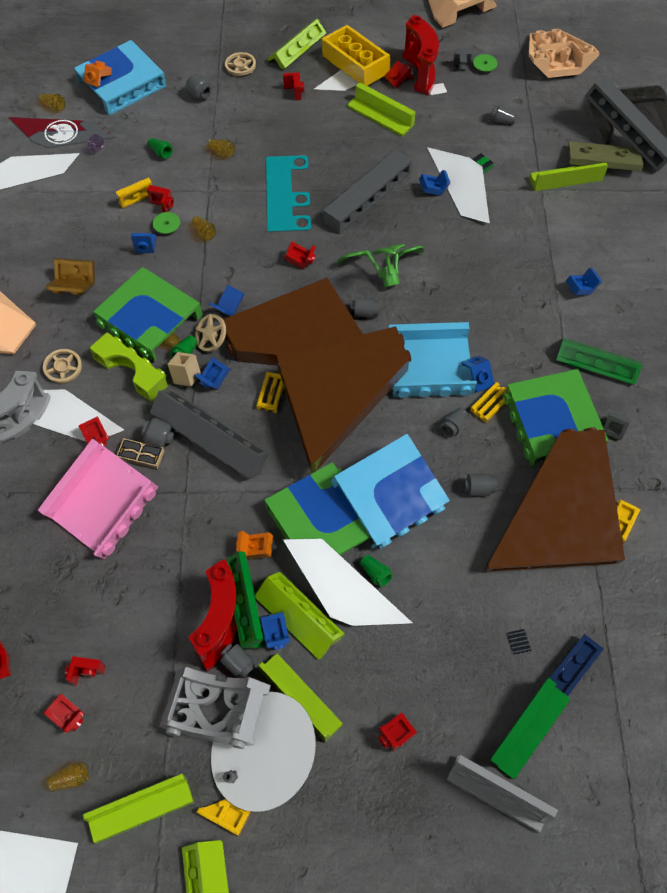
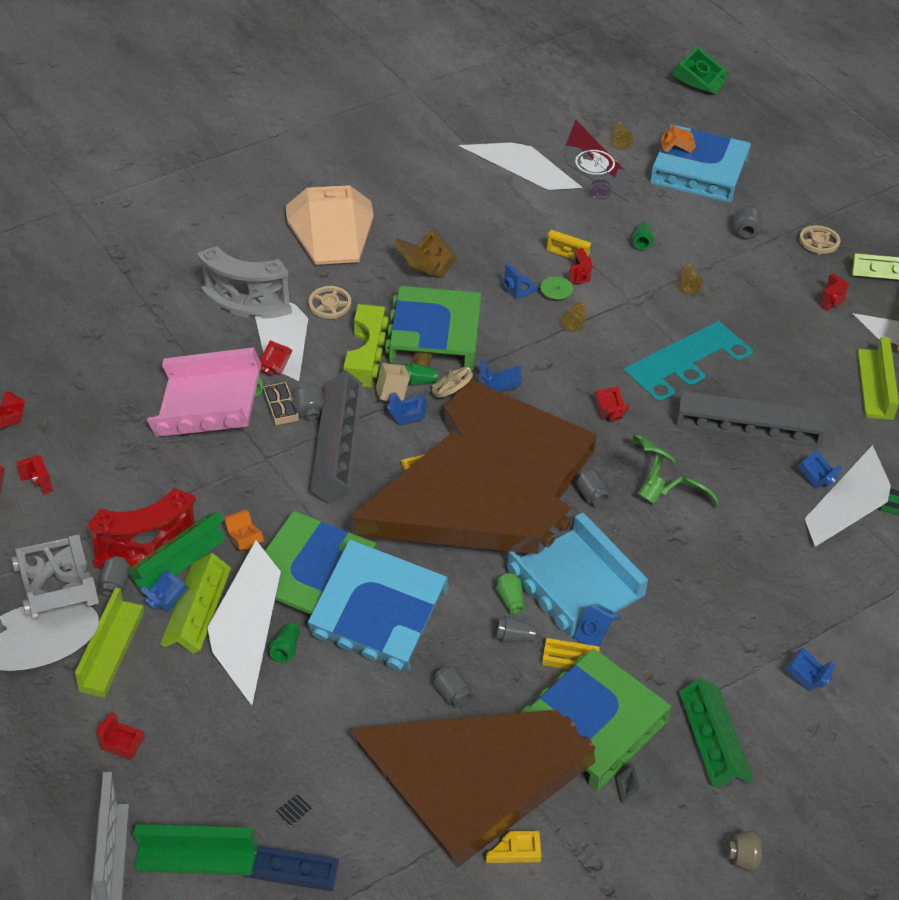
camera: 55 degrees right, 15 degrees down
(32, 24) = (701, 72): none -> green slope
(421, 405) = (511, 592): none -> bright green cone

